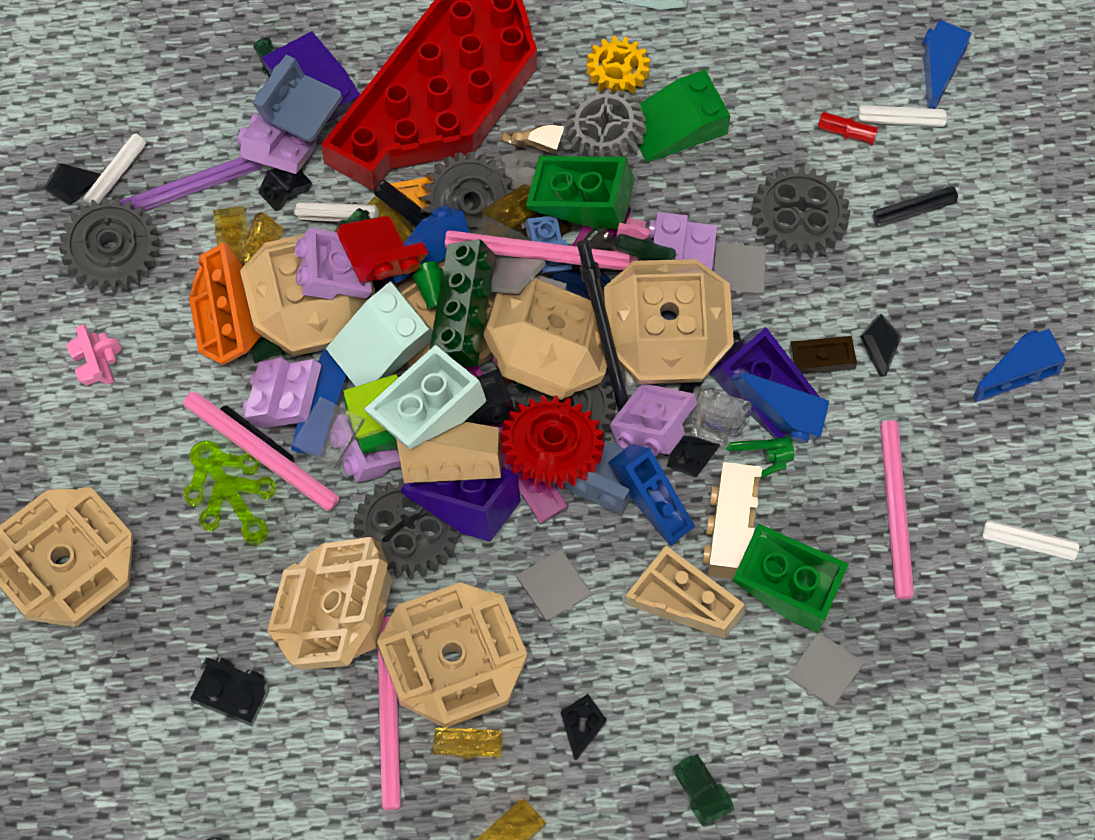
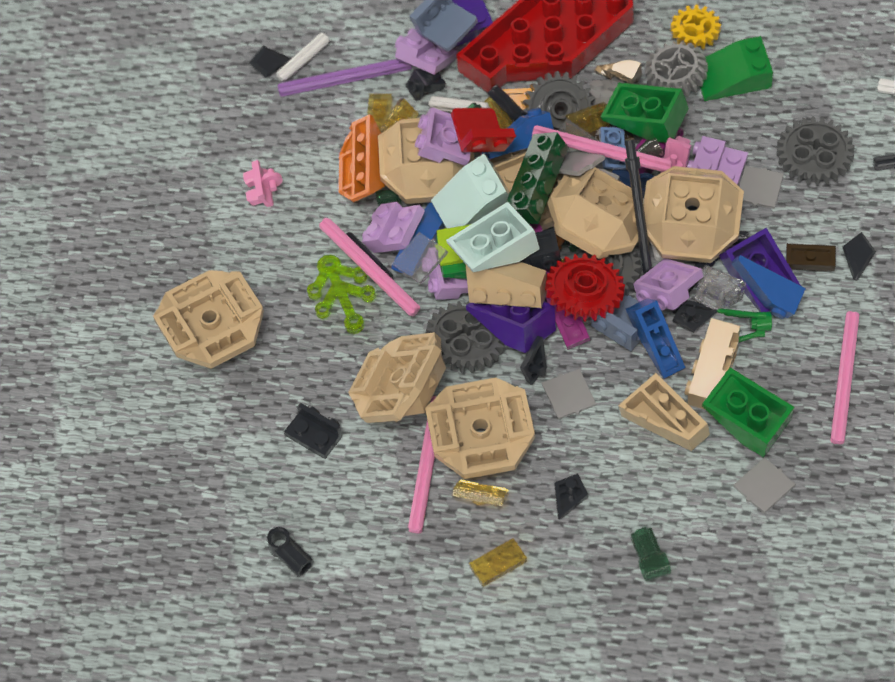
camera: 20 degrees right, 5 degrees down
(115, 265) = (288, 92): dark grey gear -> none
(428, 281) = (513, 157): green cone -> none
(503, 549) = (534, 363): none -> black piece
(643, 249) = (683, 158): clear green axle -> none
(847, 128) = (867, 94): red axle -> none

